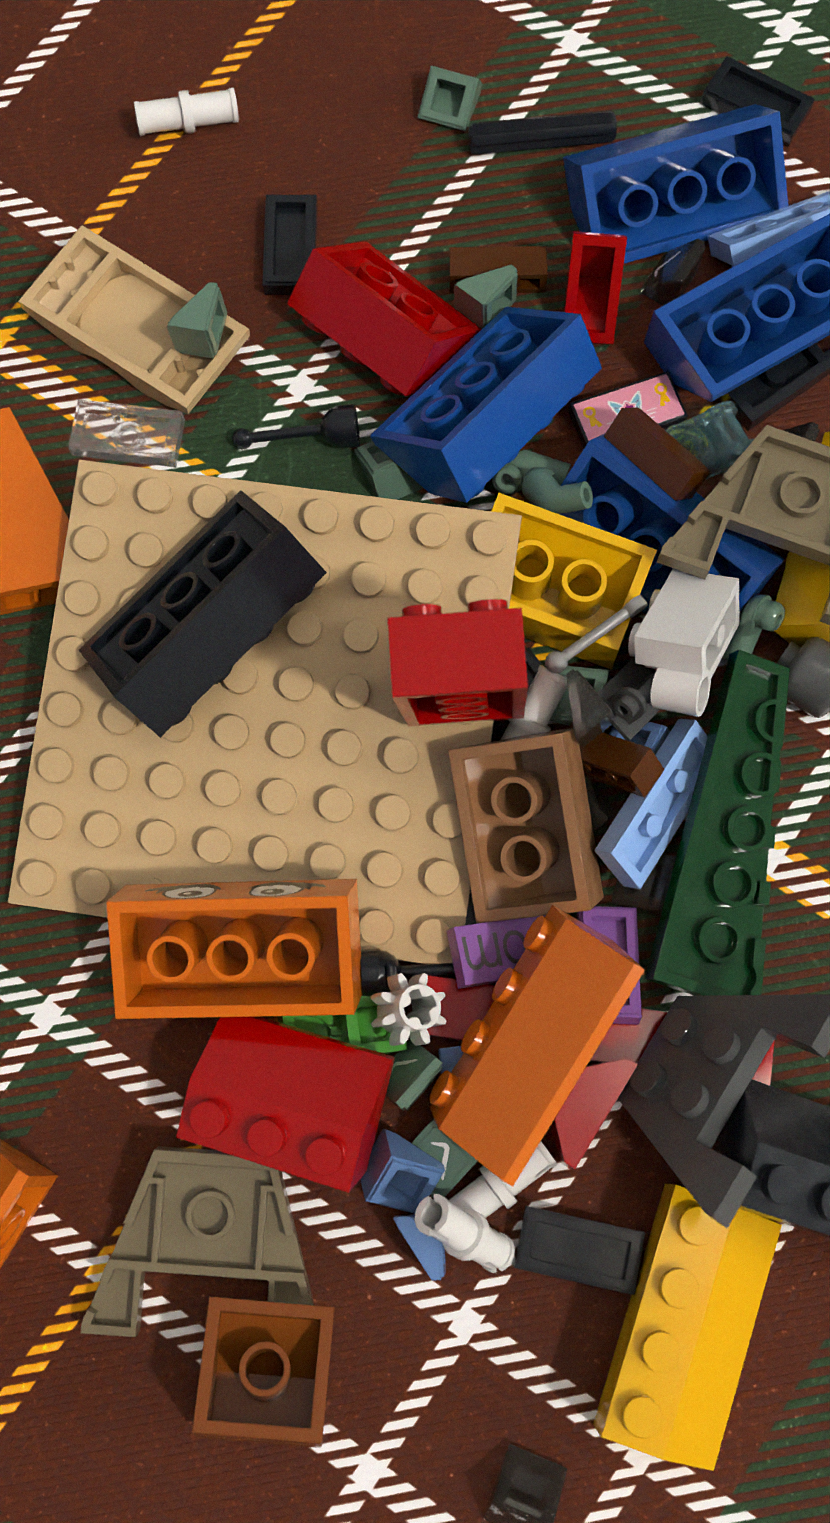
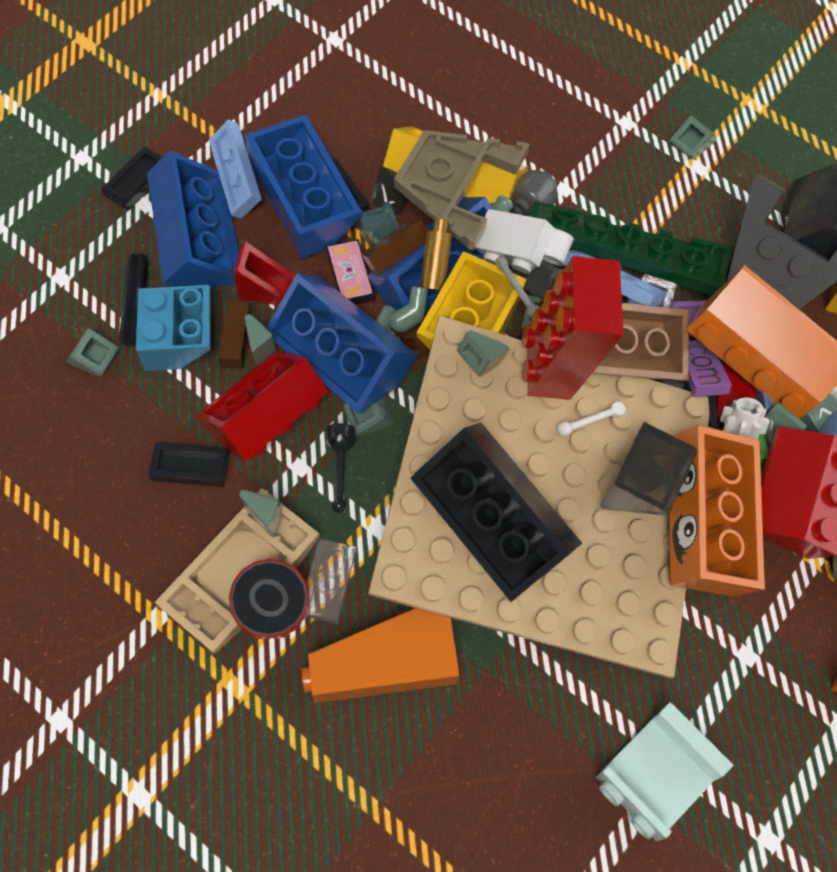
camera: 90 degrees left, 10 degrees down
(84, 353) = (269, 599): none -> black tile
(186, 111) = (65, 527): white pin -> none
(269, 828) = (650, 473): none -> clear smoke slope
(400, 799) = (616, 410): none -> white hinge
(444, 569) = (481, 352): none -> sand green slope
(491, 173) = (173, 326): none -> dark azure slope
(637, 506) = (436, 256): none -> pearl gold cylinder
(674, 272) = (256, 232): clear smoke slope -> none

